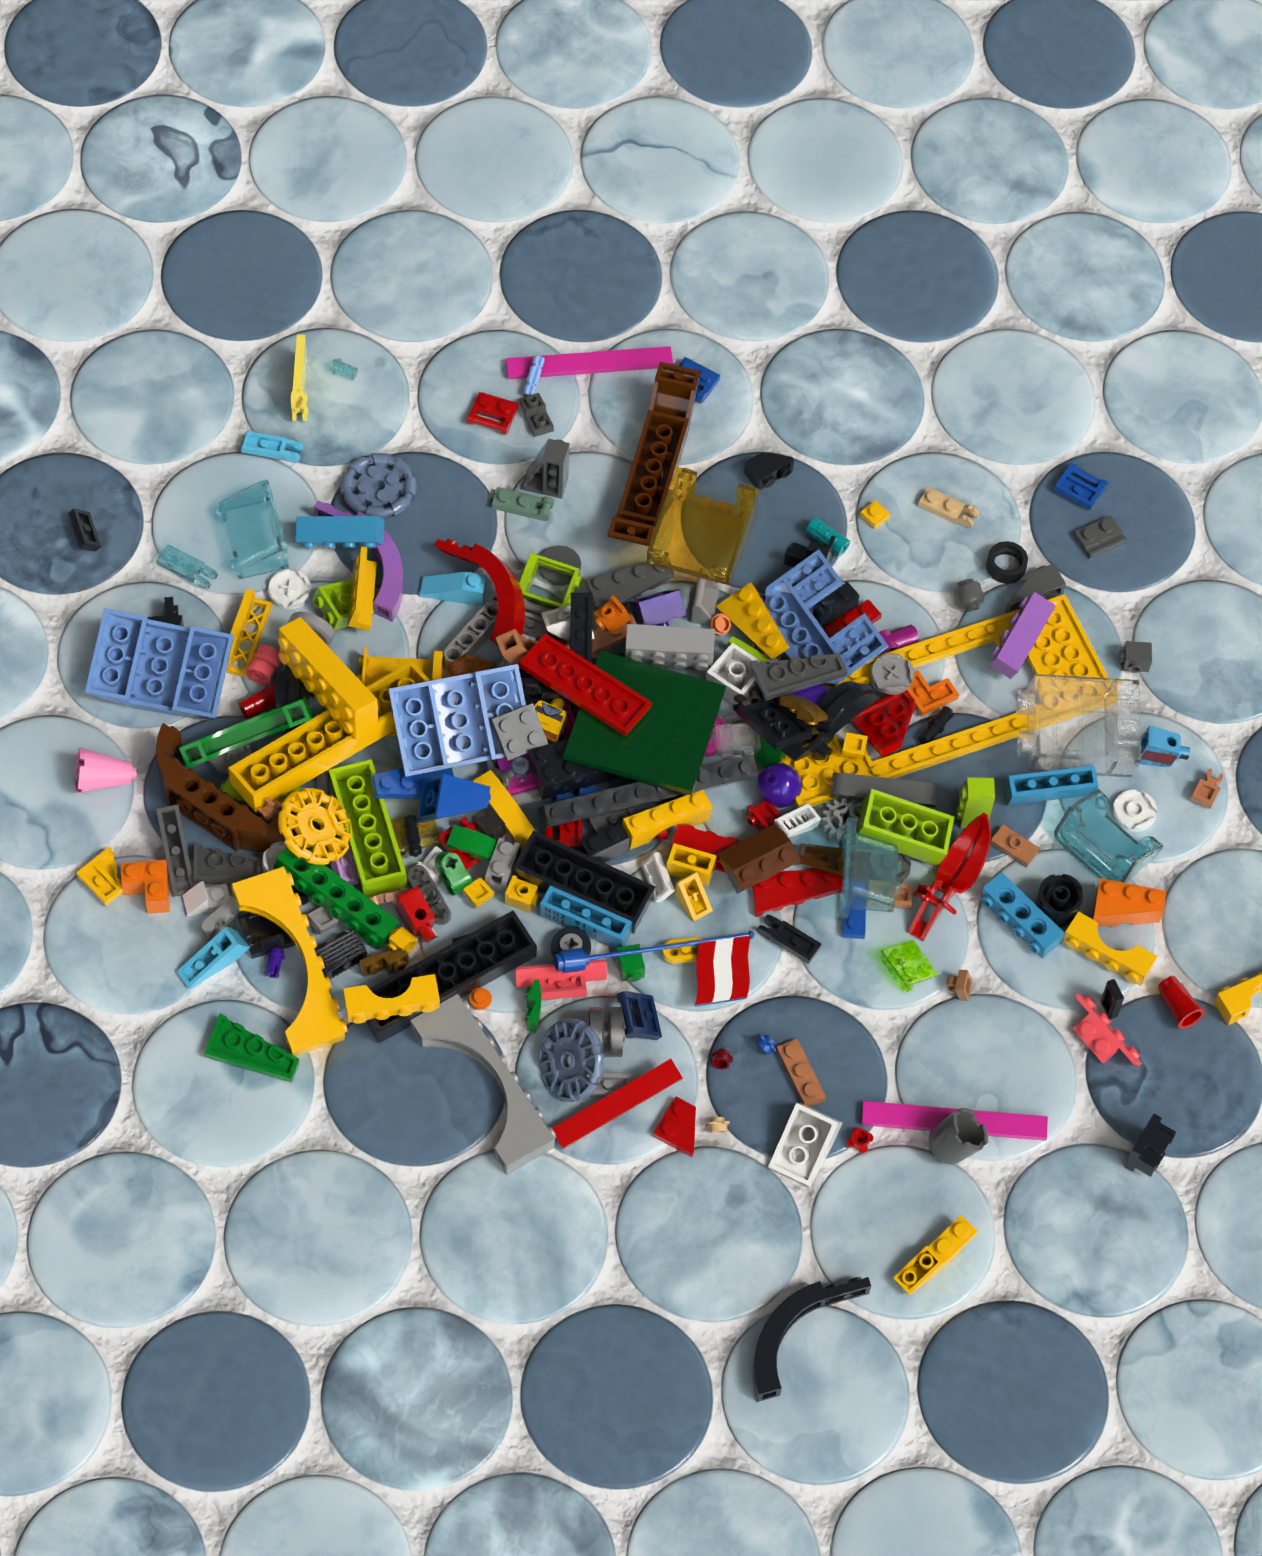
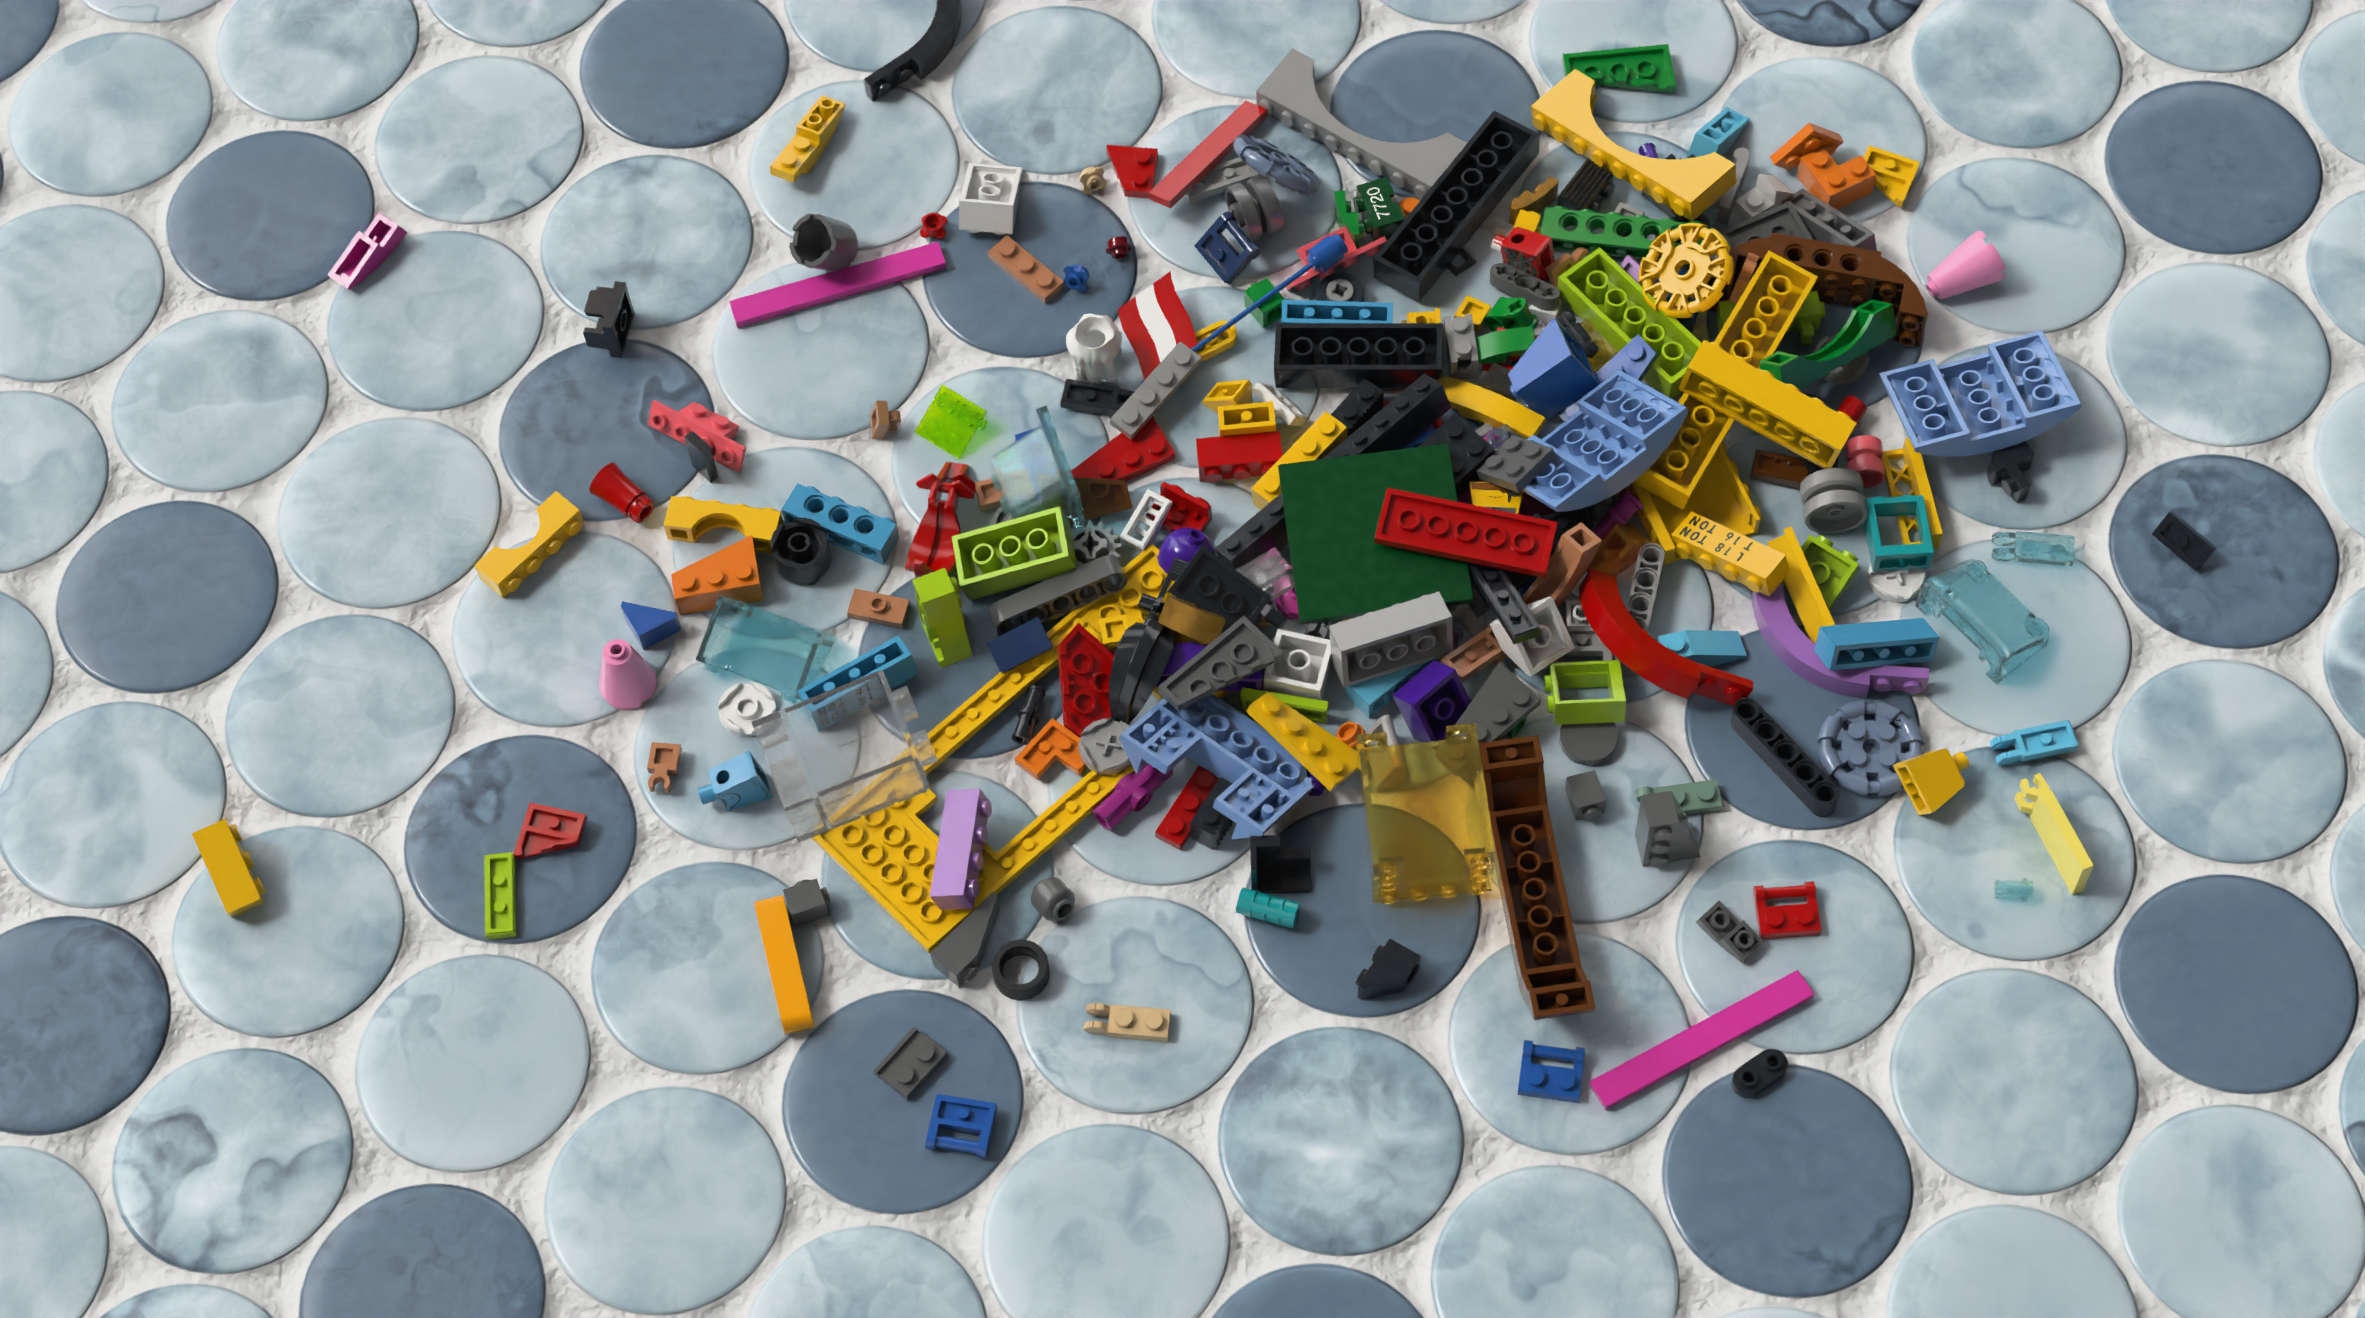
camera: 165 degrees right, 0 degrees up
(156, 910) = (1804, 142): none -> orange plate
(281, 585) = (1898, 556): none -> teal window
(353, 444) = (1932, 778): none -> yellow torso
(365, 1005) = (1522, 117): yellow arch -> none
(400, 625) = (1730, 554): none -> yellow brick
(439, 490) = (1782, 744): none -> black beam
(505, 1004) = (1378, 212): none -> dark green brick
(533, 375) = (1762, 977): light blue axle -> none
(565, 332) = (1761, 1072): none -> black plate
(584, 525) = (1585, 795): none -> dark grey brick
(611, 616) = (1485, 653): orange brick -> none
(747, 918) = (1155, 390): none -> light grey plate
(758, 858) = (1168, 444): reddish brown slope -> none
(787, 952) = (1093, 347): none -> white piece
(875, 514) = (1221, 973): yellow plate -> none
(926, 766) = (1020, 645): none -> dark blue panel
(1164, 624) = (784, 964): none -> light orange beam
(1188, 894) = (649, 623): none -> blue slope
(1217, 859) = (625, 676): none -> bright pink cone

